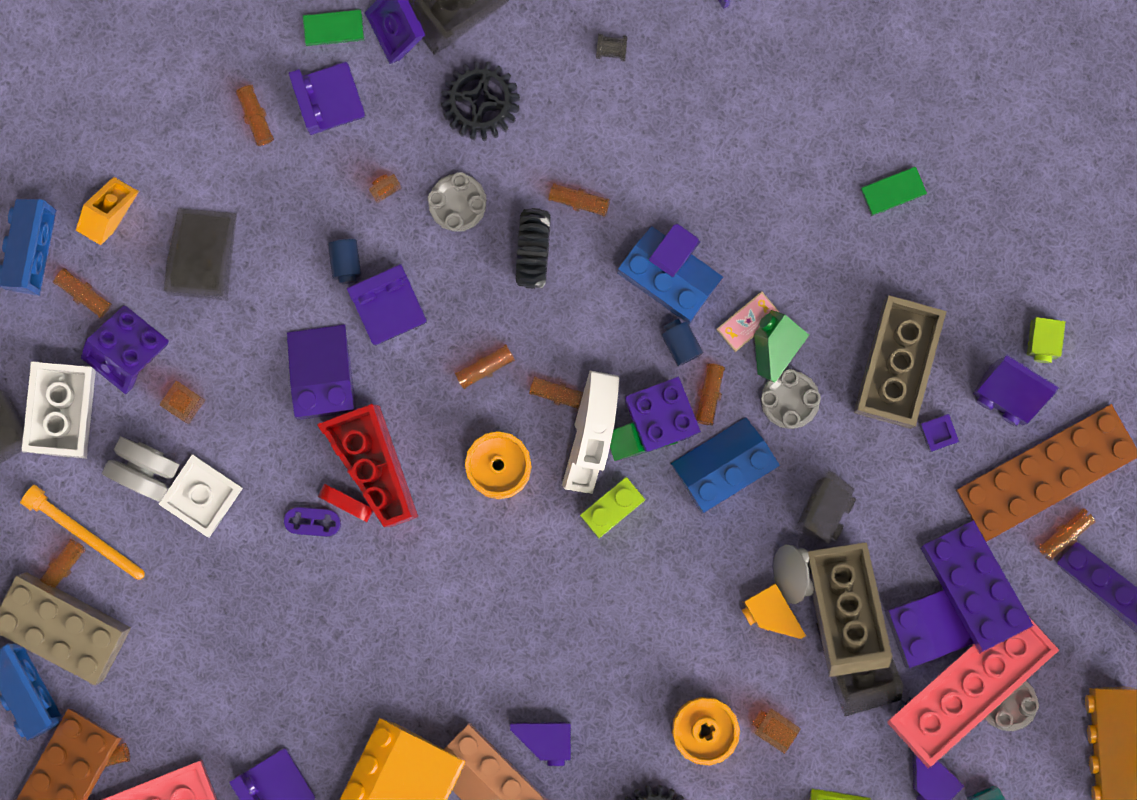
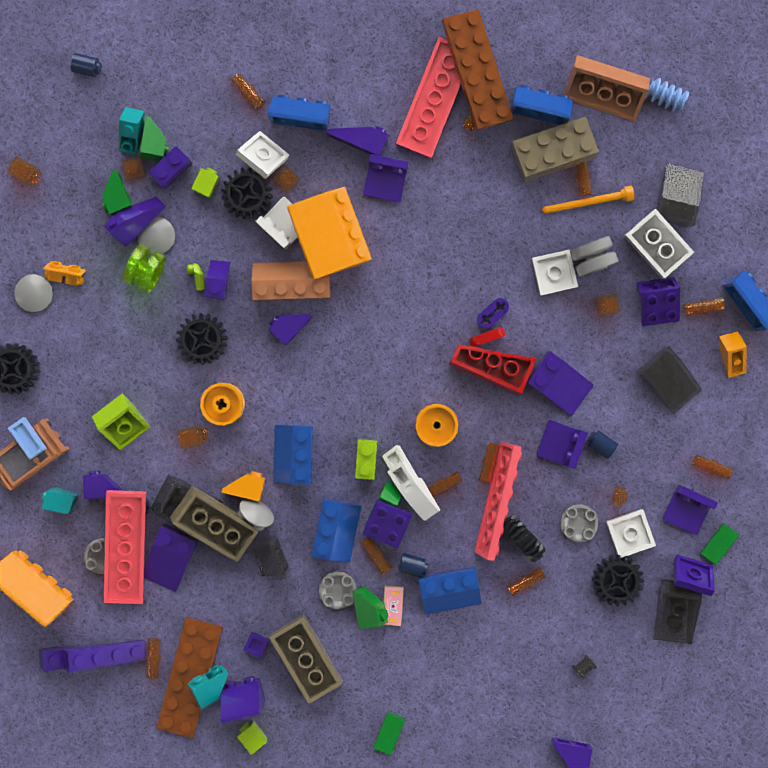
camera: 130 degrees right, 5 degrees up
(414, 135) = (630, 533): none -> white plate
(518, 316) = (497, 500): none -> coral plate
(674, 250) = (459, 604): dark purple slope -> none
(686, 596) = (293, 454): none -> blue slope
(976, 586) = (168, 593): dark purple plate -> none
(1036, 441) = (208, 687): none -> teal slope

